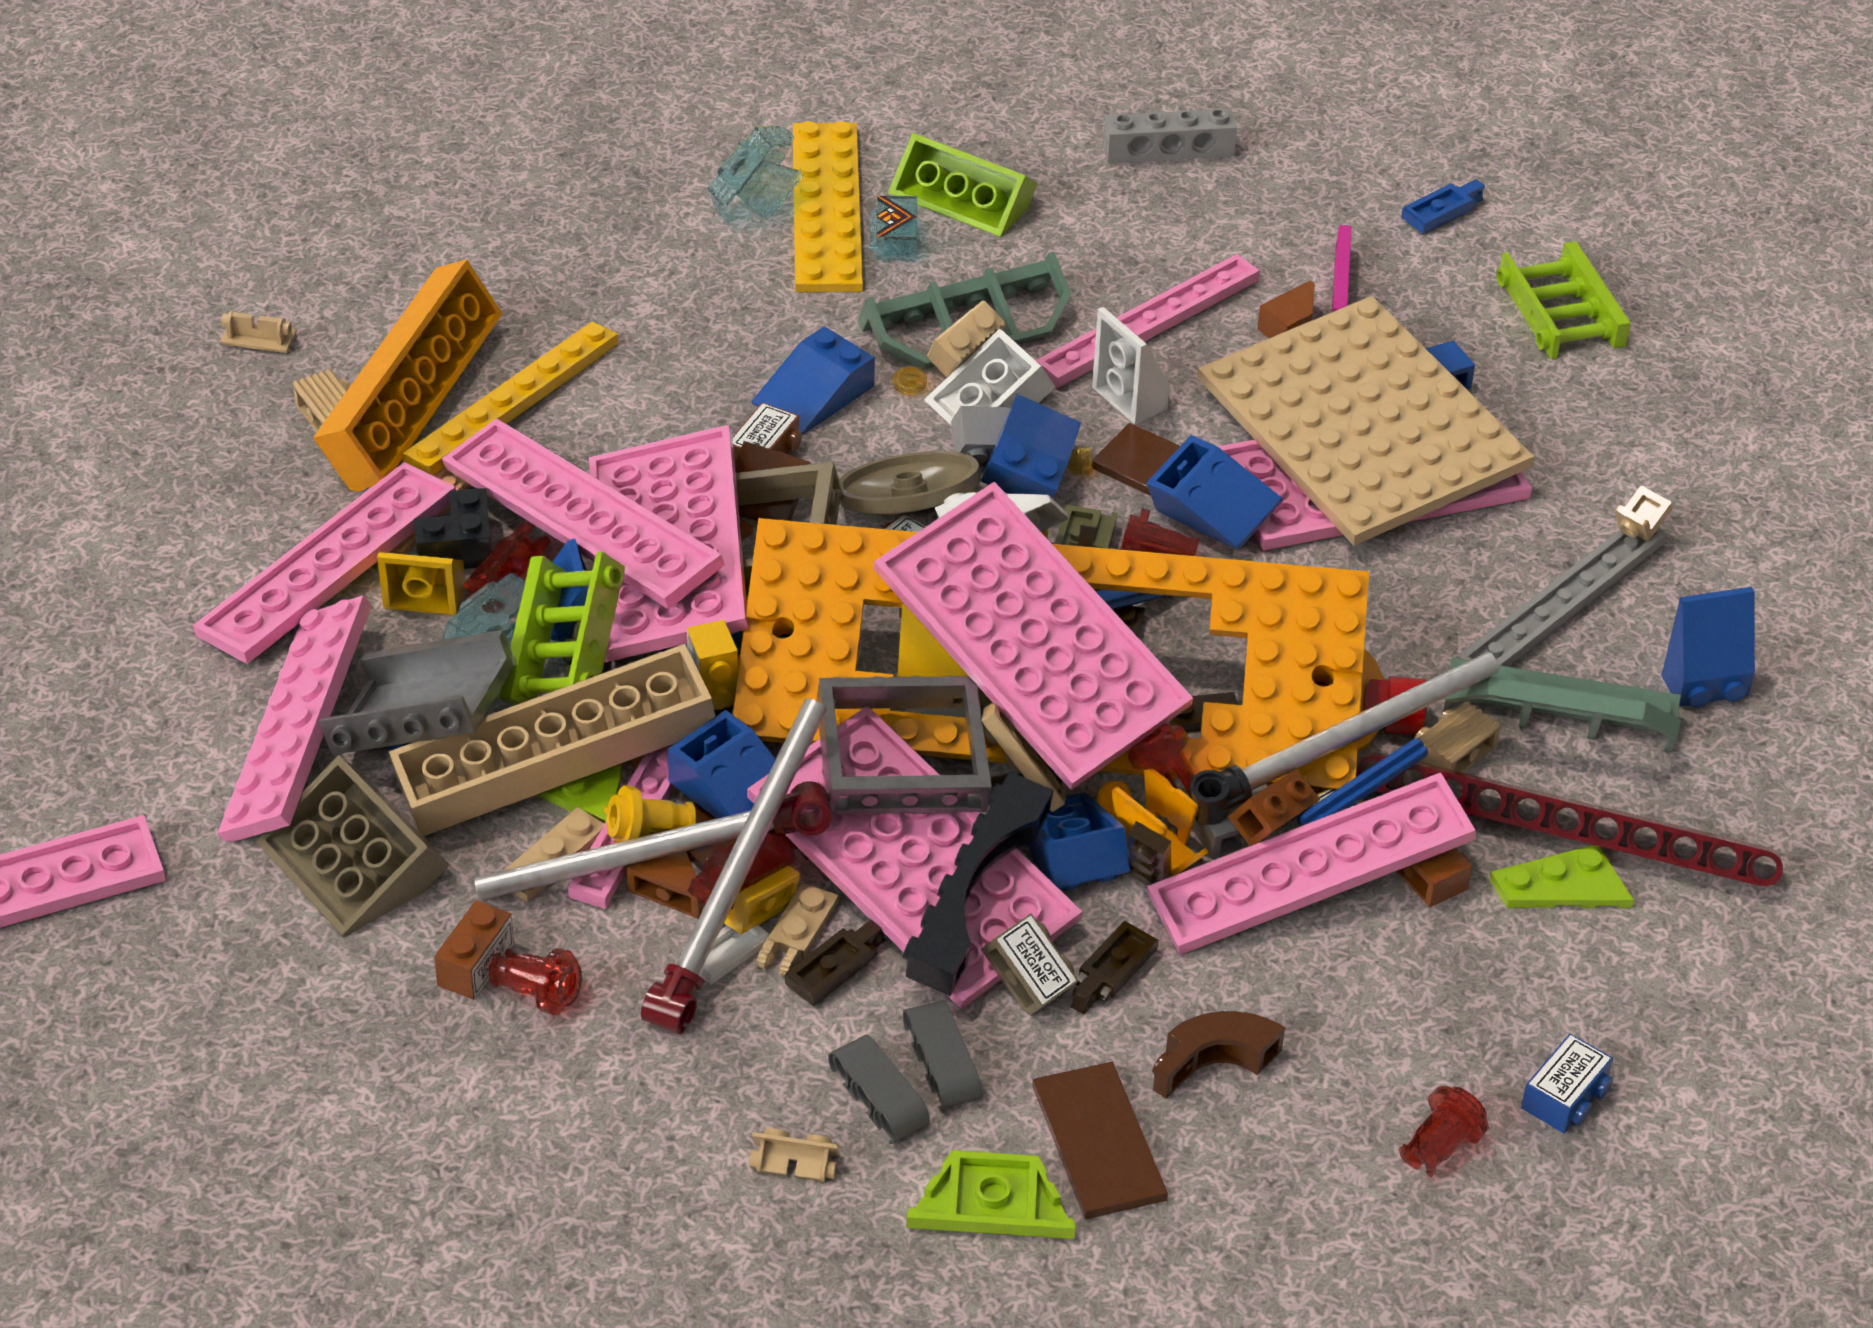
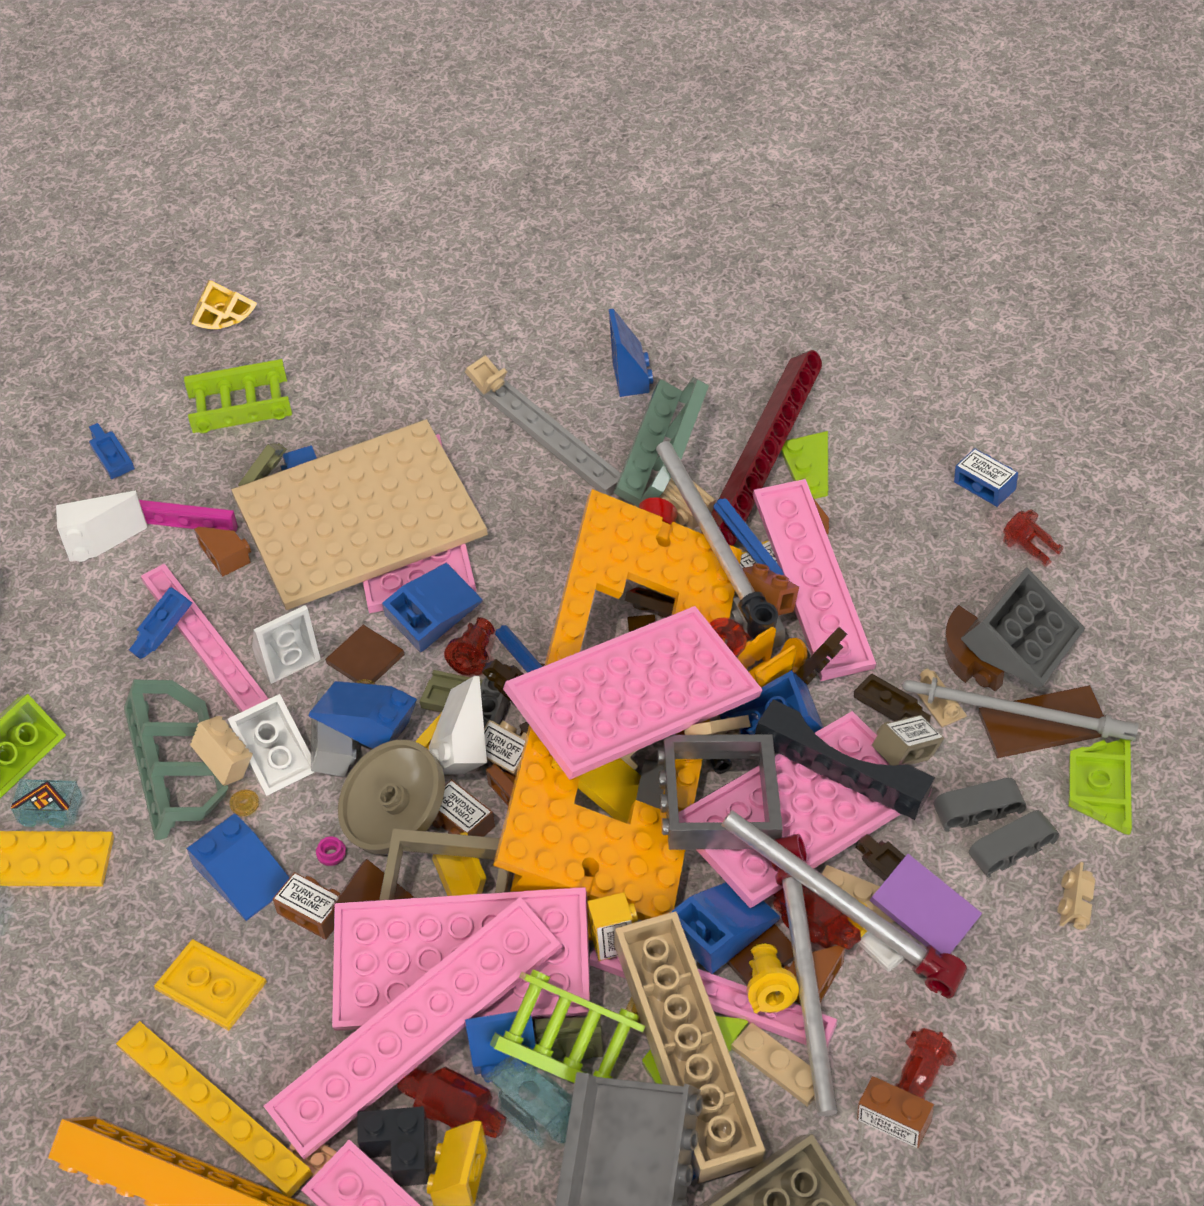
camera: 80 degrees left, 5 degrees up
(667, 383) = (210, 984): none -> yellow tile
(769, 986) = (925, 906): none -> medium lavender tile
(844, 454) = (327, 844): none -> dark pink plate
(1075, 1188) = (1103, 725): none -> light grey bar
(1127, 1019) = (943, 710): none -> tan hinge
(1160, 274) = (160, 622): none -> blue hinge
(1244, 1102) = (1024, 630): none -> dark grey slope
(1301, 200) = (98, 524): none -> white slope
(1425, 321) = (264, 463): none -> olive plate
(1727, 266) = (220, 307): none -> yellow brick

